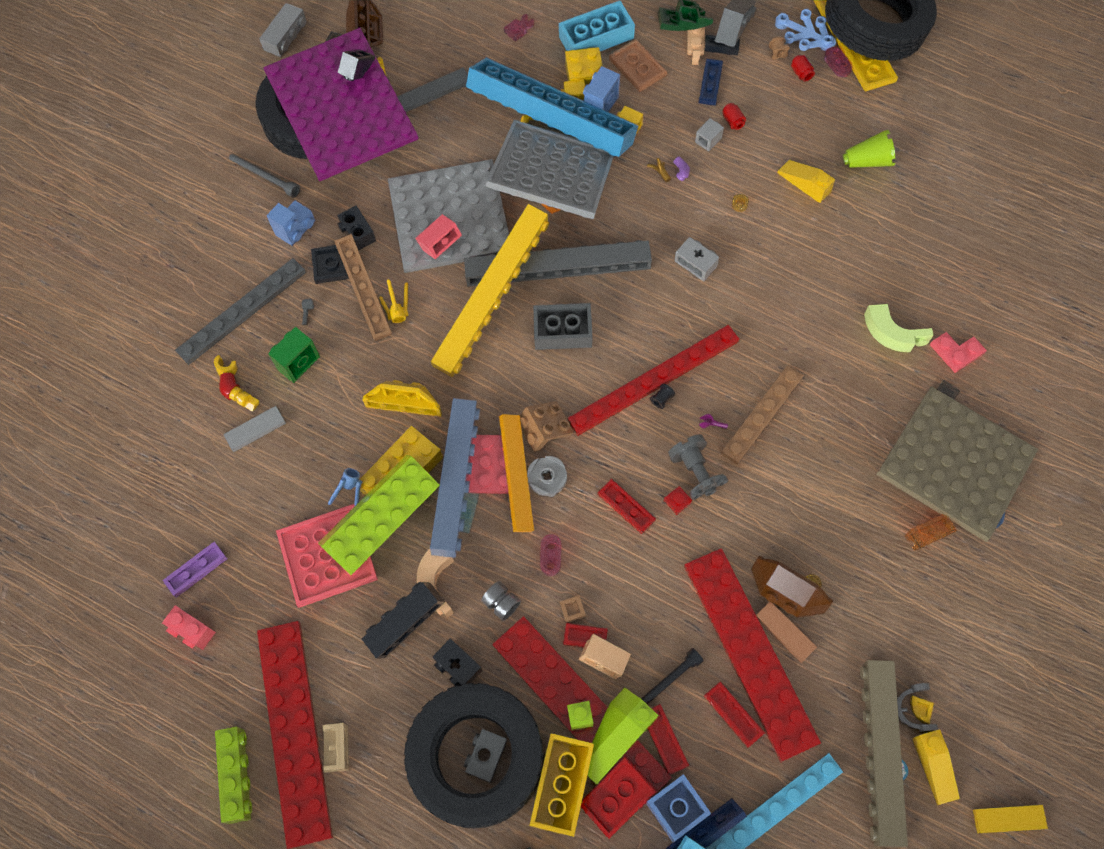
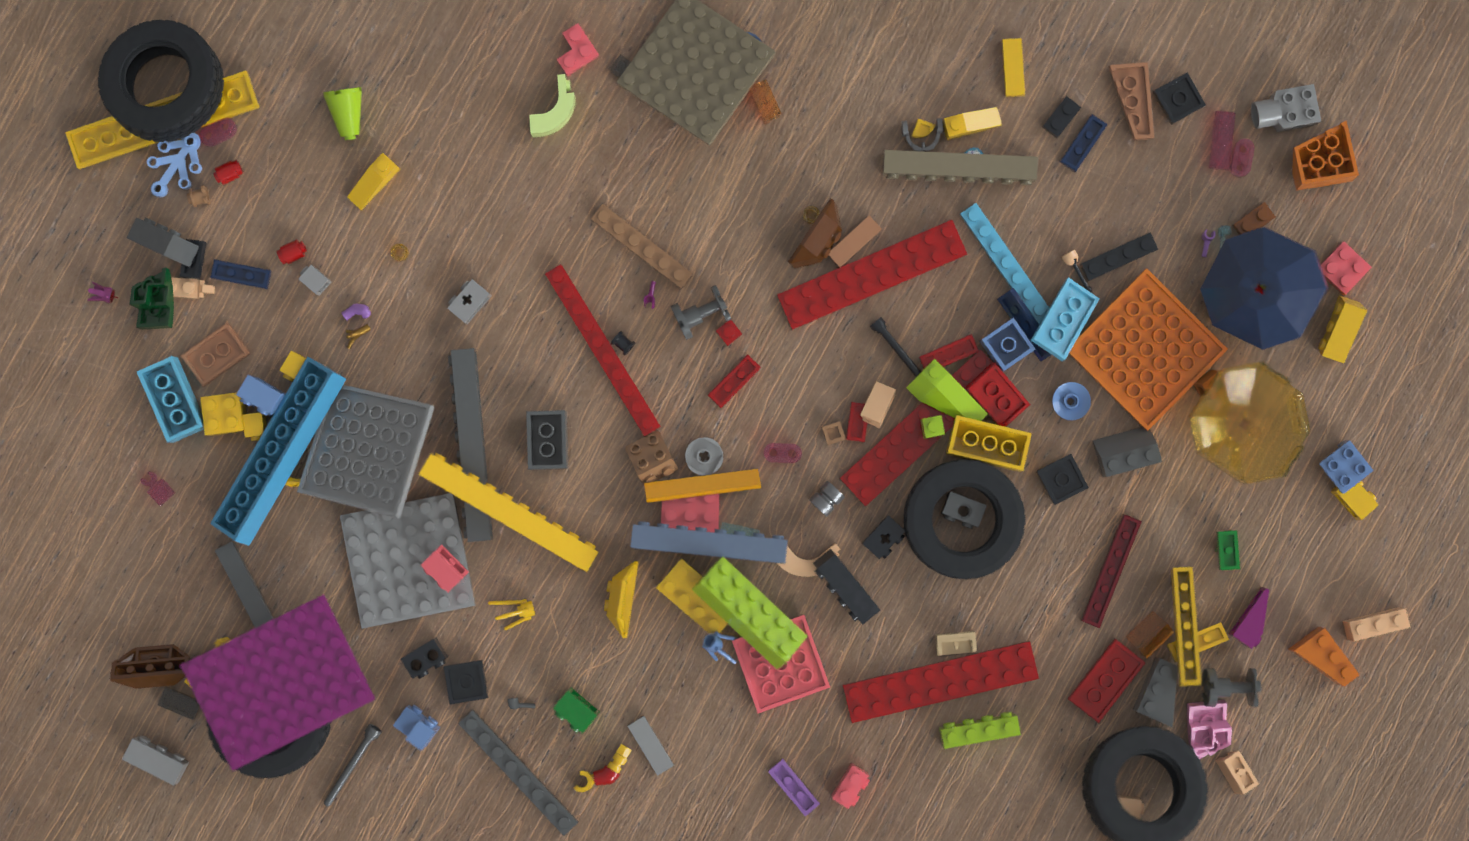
camera: 90 degrees left, 20 degrees up
(355, 64) = (237, 664): black slope -> none
(363, 287) = (498, 646): medium nougat plate -> none
(734, 714) = (927, 292): red plate -> none

